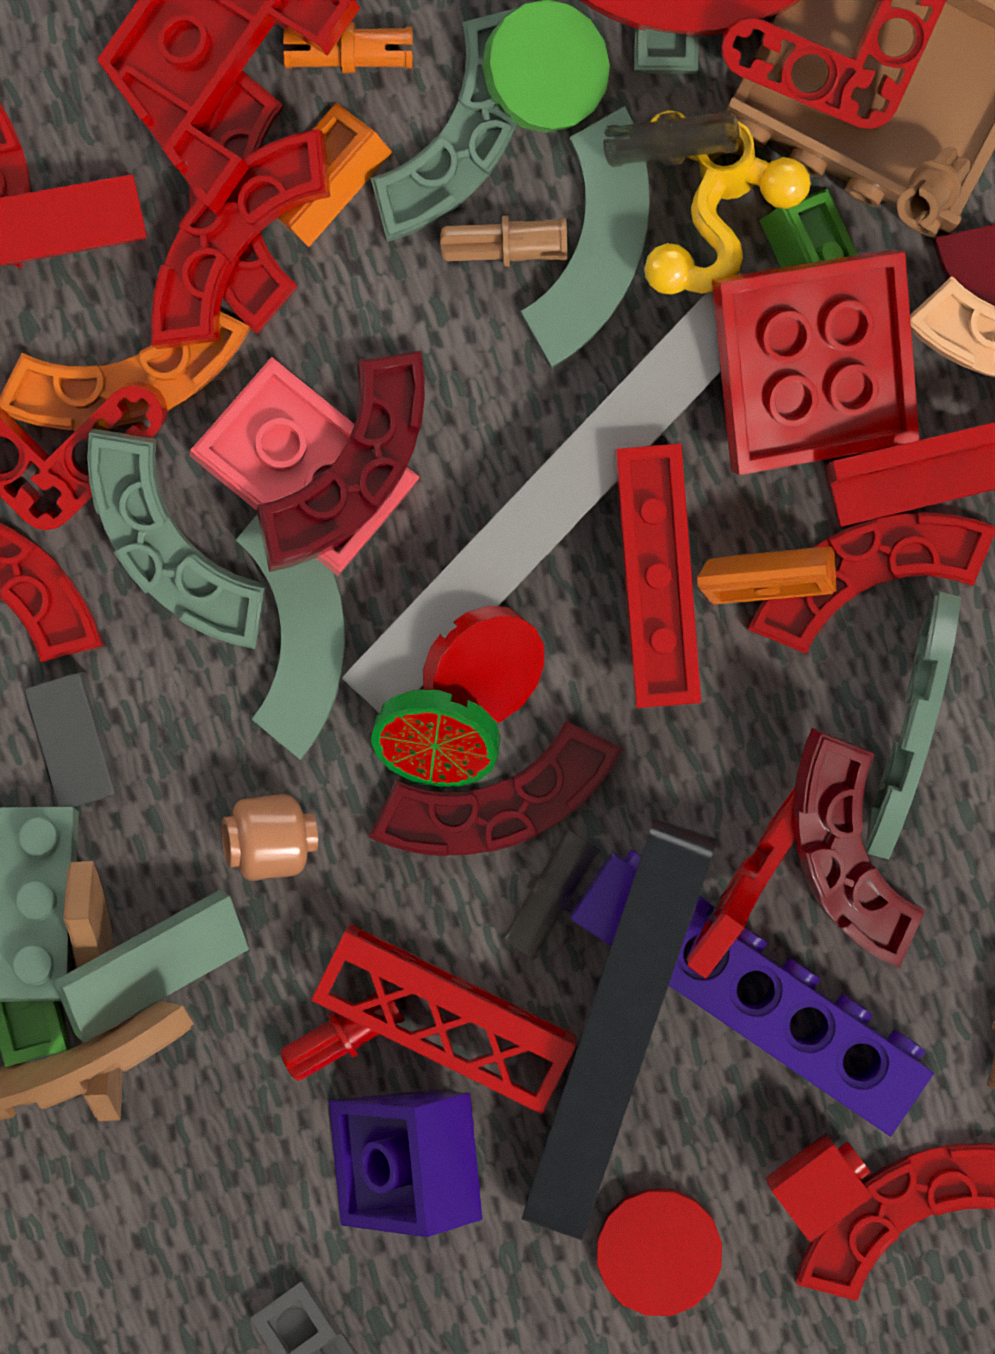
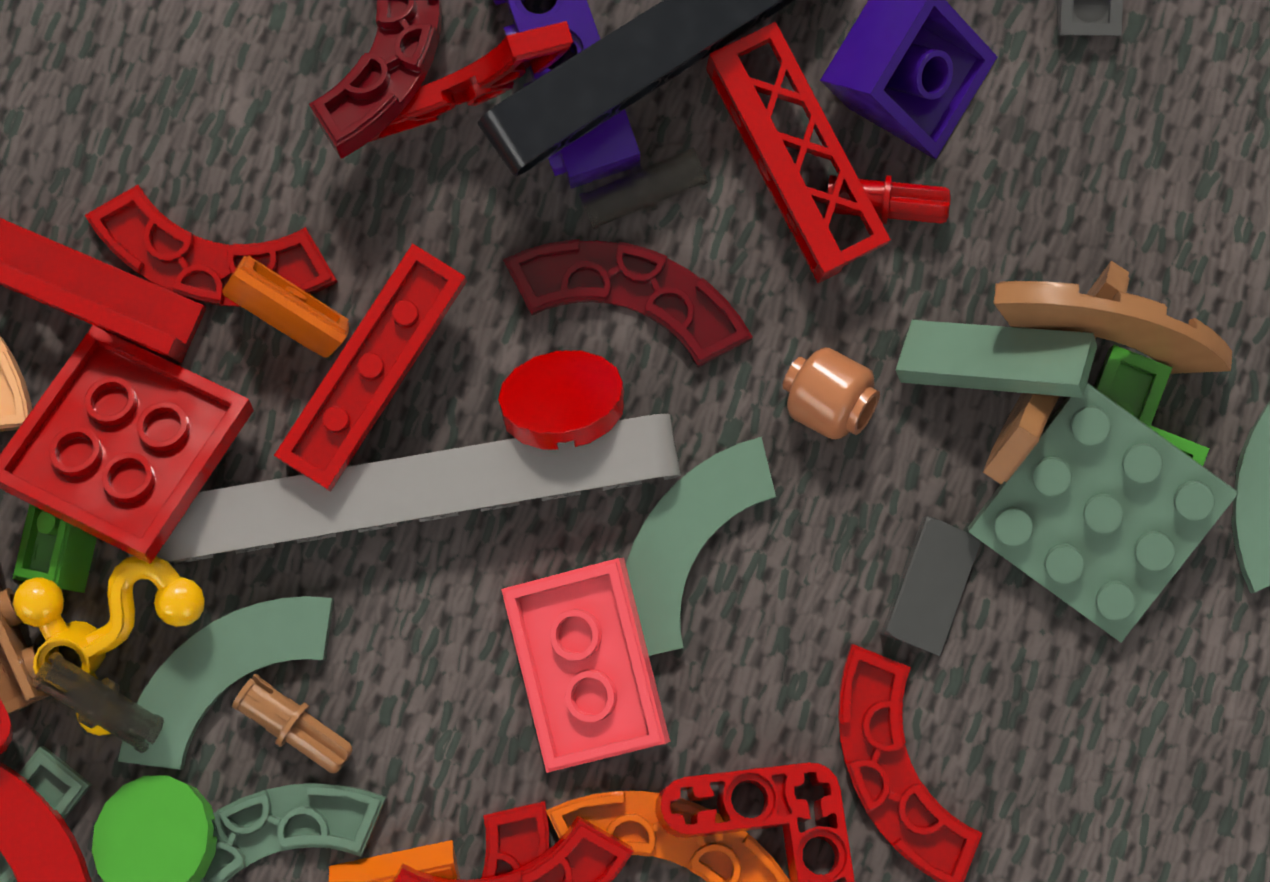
camera: 140 degrees left, 5 degrees down
(156, 550) = (752, 685): sand green tile -> none
(363, 474) = (542, 622): dark red tile -> none
(435, 739) = (641, 371): tile -> none
(924, 698) = (233, 126): sand green tile -> none

